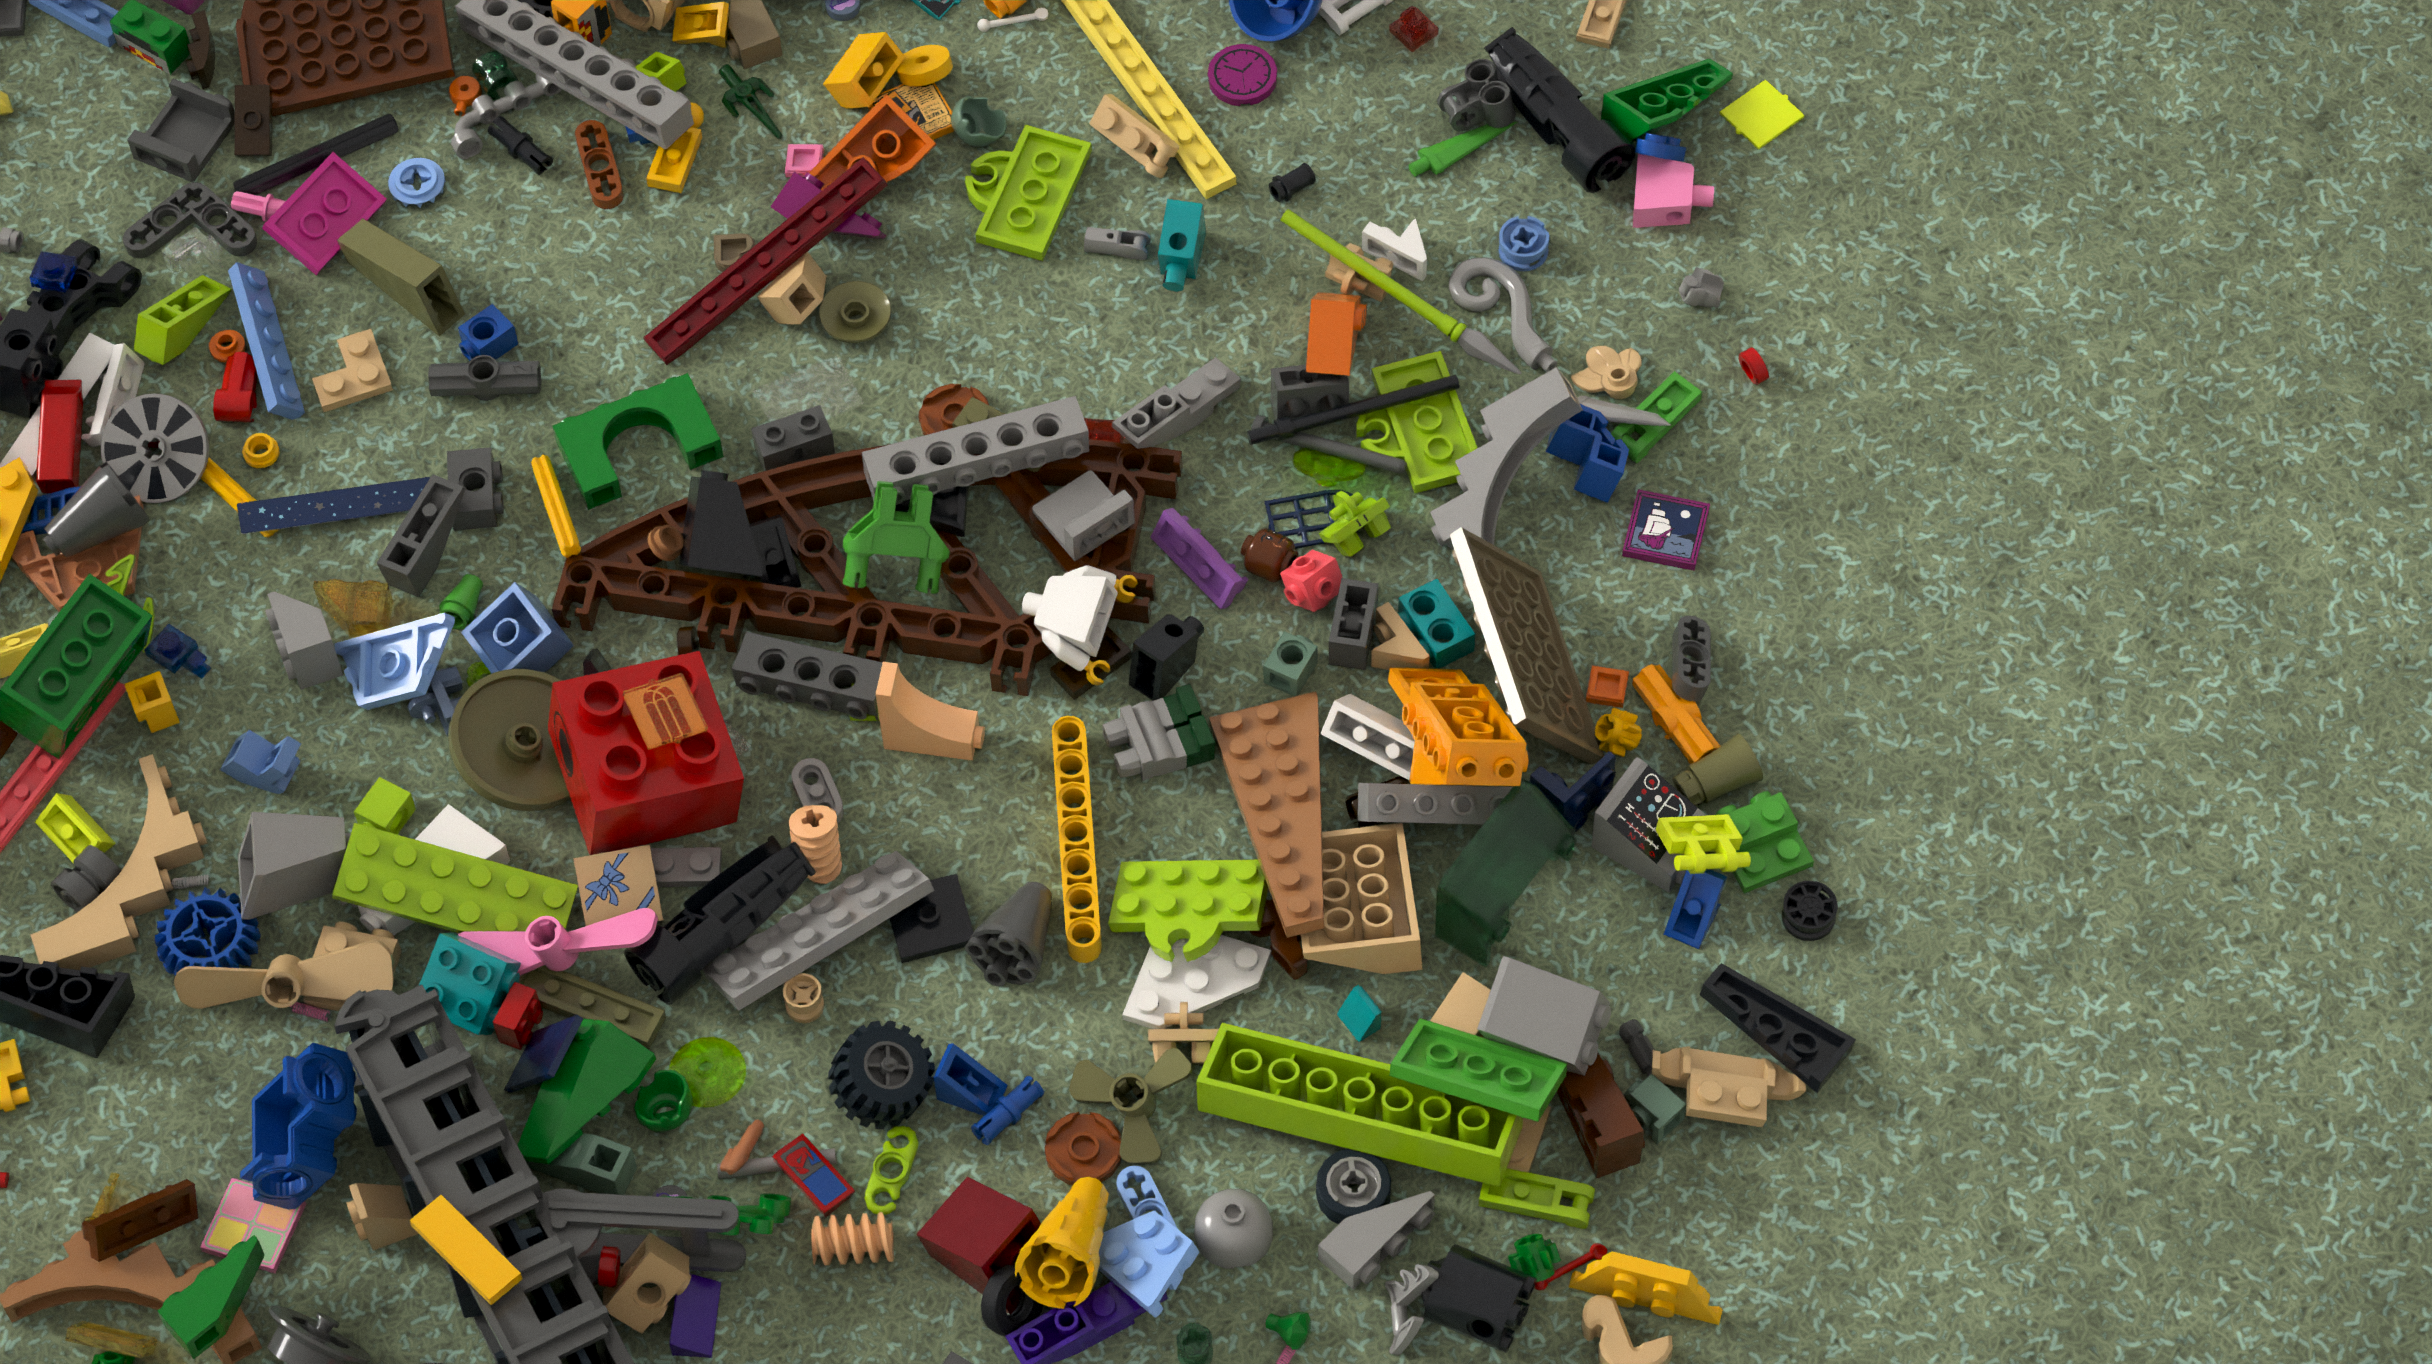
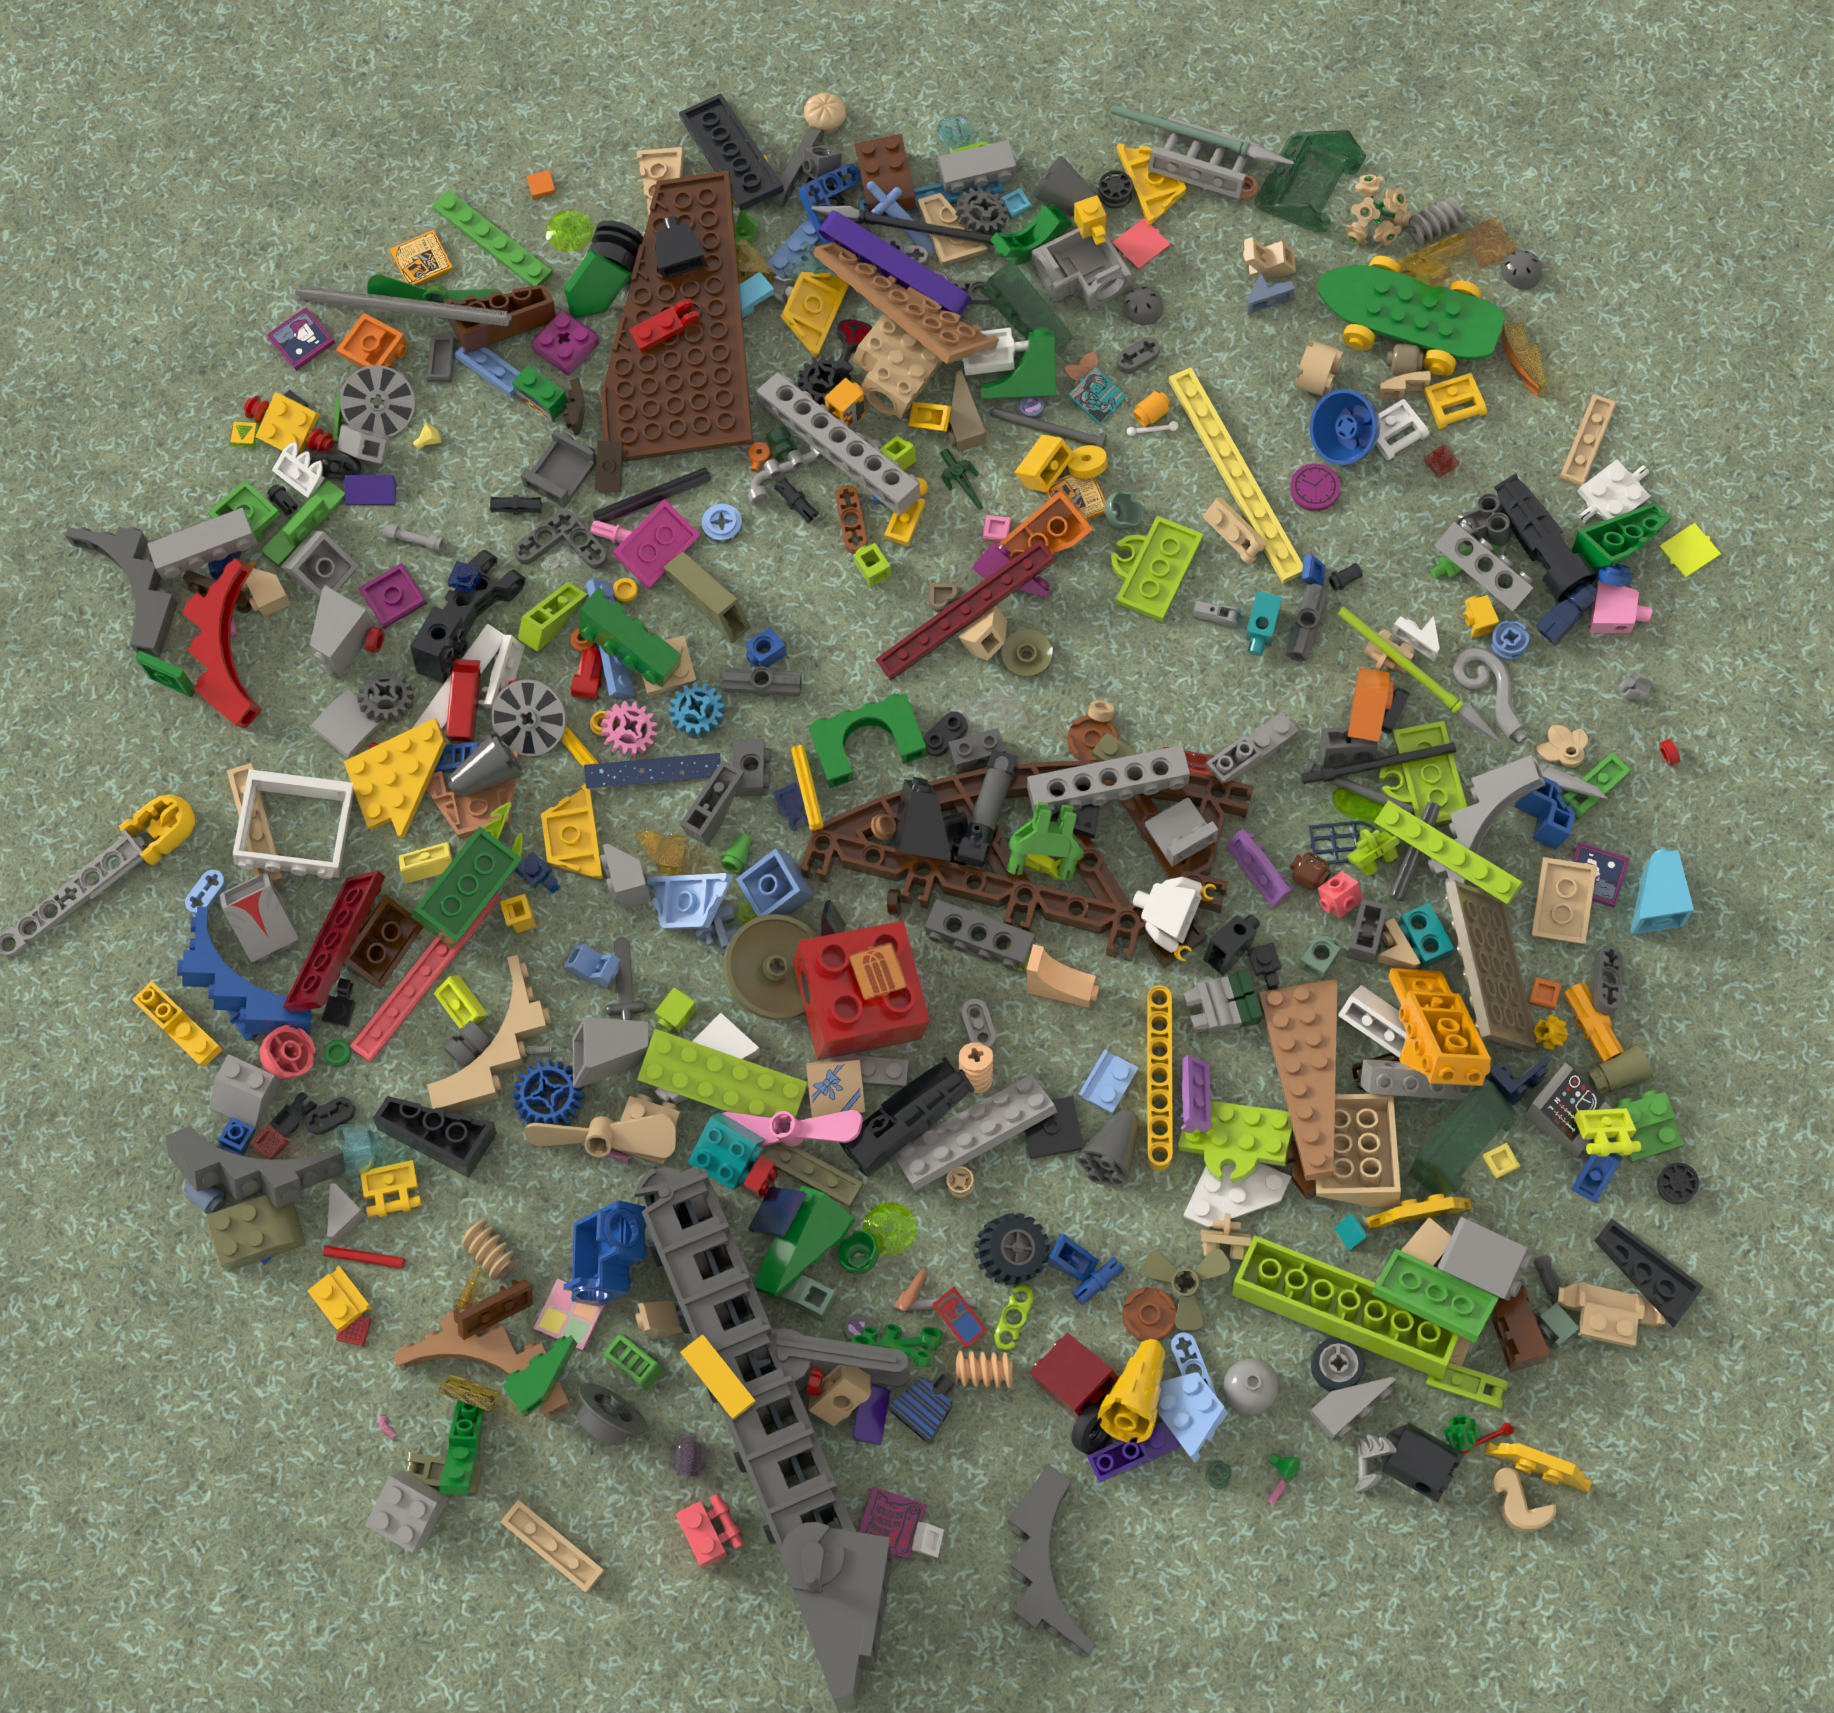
camera: 10 degrees right, 10 degrees up
(123, 181) = (515, 504): none -> black pin
(131, 1148) = (487, 1251): none -> tan piece
(225, 598) = (572, 835): none -> yellow wing
(284, 279) = (625, 590): none -> yellow tile
(289, 330) = (627, 639): none -> green wedge
(298, 453) = (630, 718): none -> bright pink gear
(309, 777) = (625, 1005): none -> dark grey sword
(367, 1293) = (648, 1369): none -> bright green slope
(385, 433) = (705, 701): none -> dark azure gear
(535, 531) = (791, 803): none -> clear blue plate
(631, 217) = (872, 555): none -> lime brick
(743, 420) = (945, 733): none -> black plate
(769, 1297) = (924, 1407): none -> torso
(826, 459) = (999, 775): none -> piece
(857, 26) = (1049, 427): none -> dark grey bar
(891, 577) = (1043, 864): none -> neon yellow plate
(964, 377) = (1101, 711): none -> tan tile
(1005, 852) = (1108, 1082): none -> light blue plate
(1127, 851) = (1195, 1095): none -> medium lavender plate
(1217, 680) = (1265, 963): none -> black plate
(1237, 257) = (1304, 635): none -> dark grey piece
(1246, 178) = (1313, 570): none -> blue tile
(1369, 344) = (1392, 715): none -> black beam
(1412, 518) = (1412, 857): none -> dark grey axle
(1431, 125) = (1450, 544): none -> light grey brick
(1440, 971) = (1411, 1210): none -> yellow wing
(1456, 509) = (1448, 853): none -> lime plate
(1480, 215) = (1480, 615): none -> yellow brick
(1563, 905) = (1501, 1161): none -> light yellow tile
(1596, 203) = (1566, 613): none -> dark blue piece
(1622, 563) = (1564, 901): none -> tan plate
(1651, 48) = (1613, 492): none -> white plate
(1758, 543) = (1662, 894): none -> medium azure slope

